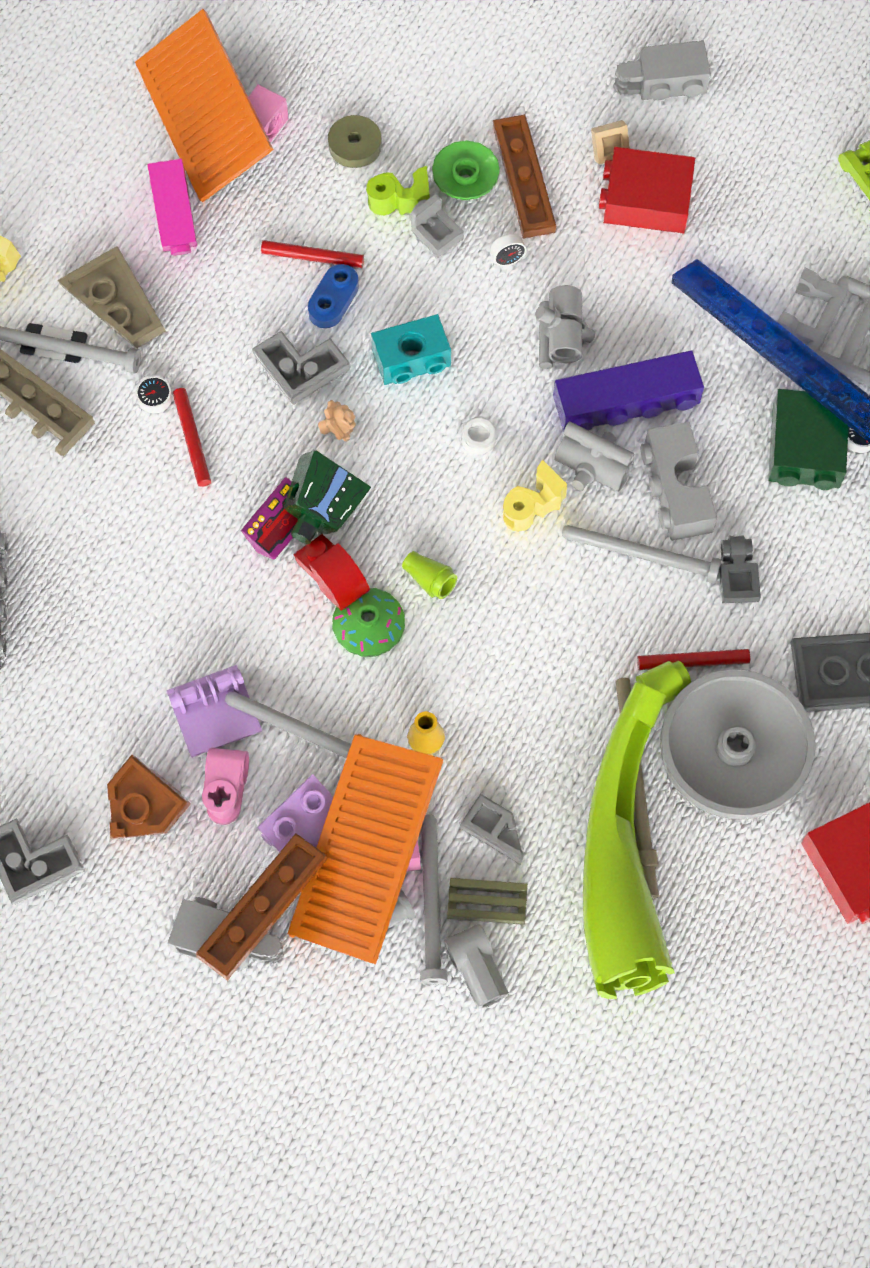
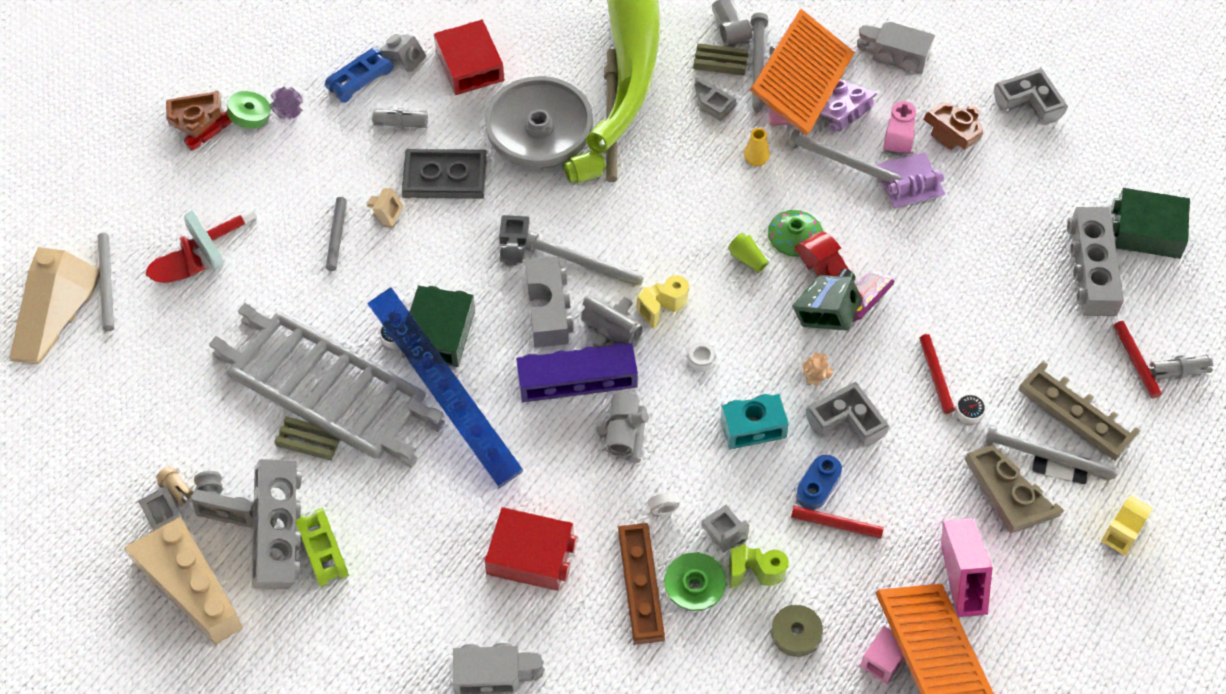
camera: 175 degrees left, 10 degrees down
(261, 906) = (872, 46): dark orange tile -> none
(606, 138) = (558, 600): tan tile -> none
(696, 659) = (557, 188): red bar -> none

